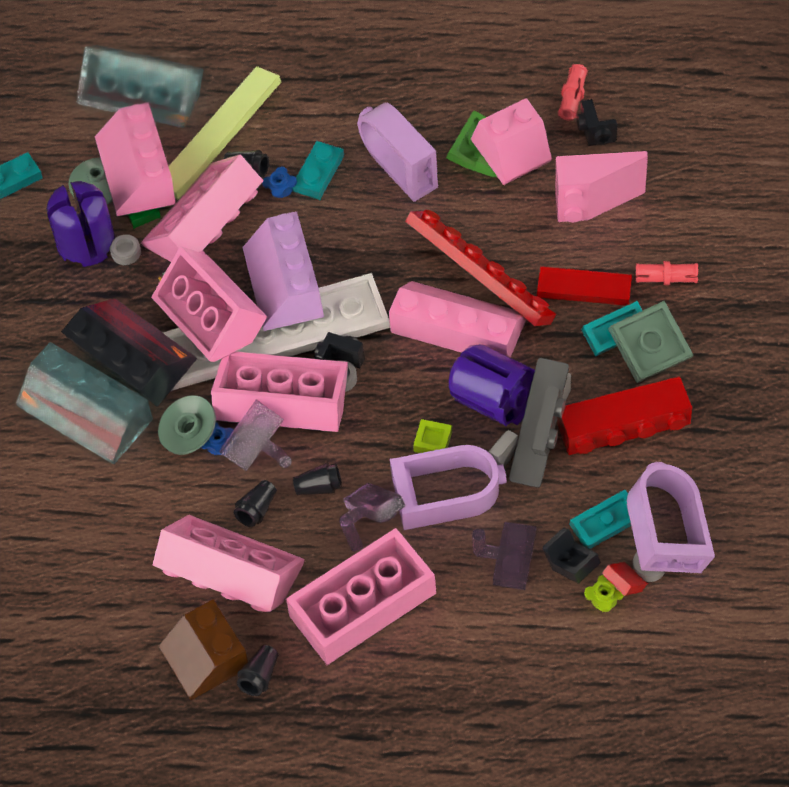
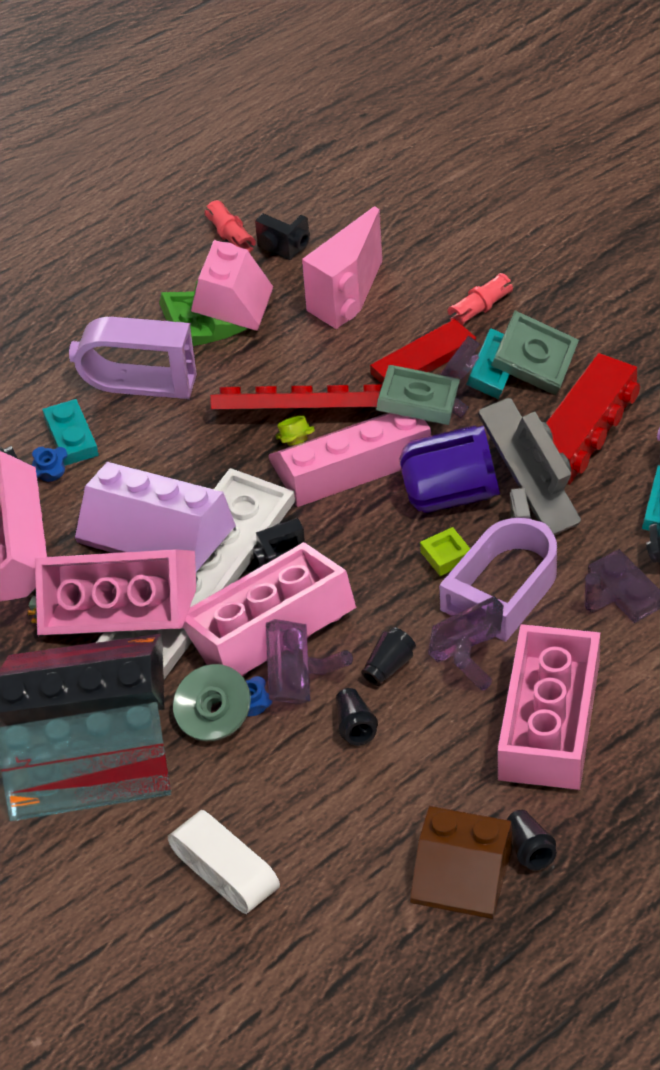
camera: 45 degrees left, 10 degrees down
(85, 532) = (223, 861): none -> white beam
(227, 562) = (393, 780): bright pink slope -> none
(441, 277) = (294, 430): none -> lime plate
(524, 314) = (418, 394): none -> sand green tile
(581, 311) = (459, 366): none -> clear purple plate

